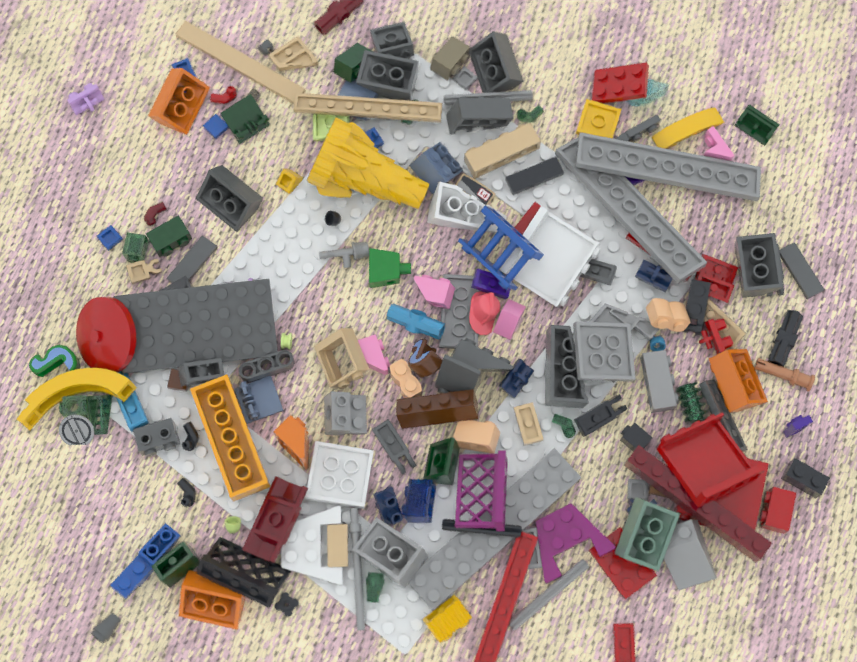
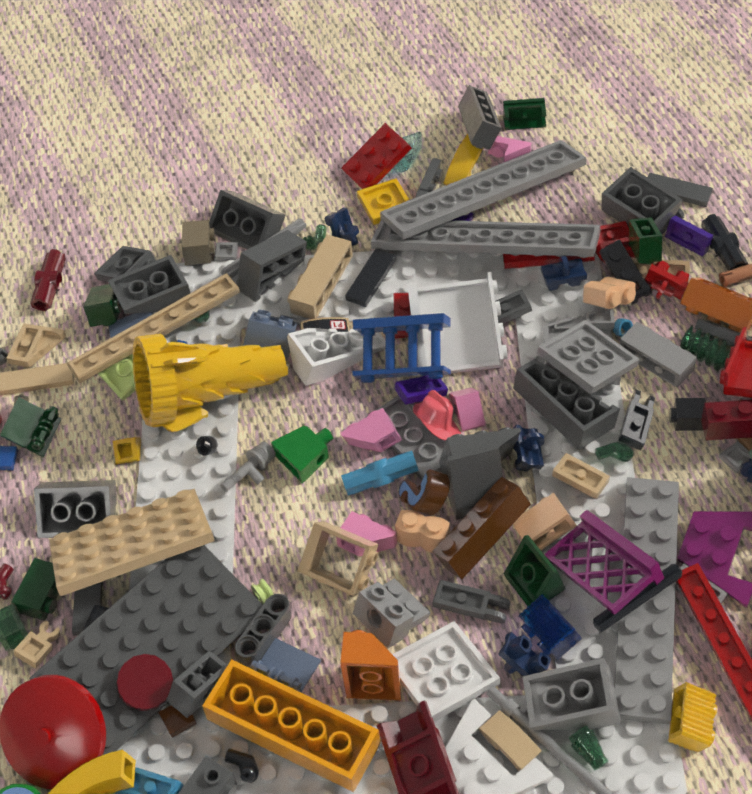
camera: 35 degrees left, 20 degrees down
(172, 347) = (144, 682): none -> dark red tile
(234, 251) = (129, 541): none -> tan plate
(547, 123) = (342, 225): none -> dark blue hips
(716, 106) = (479, 117): none -> dark grey brick
(726, 297) = (645, 240): none -> dark green brick
(768, 313) = (688, 236): none -> dark purple plate

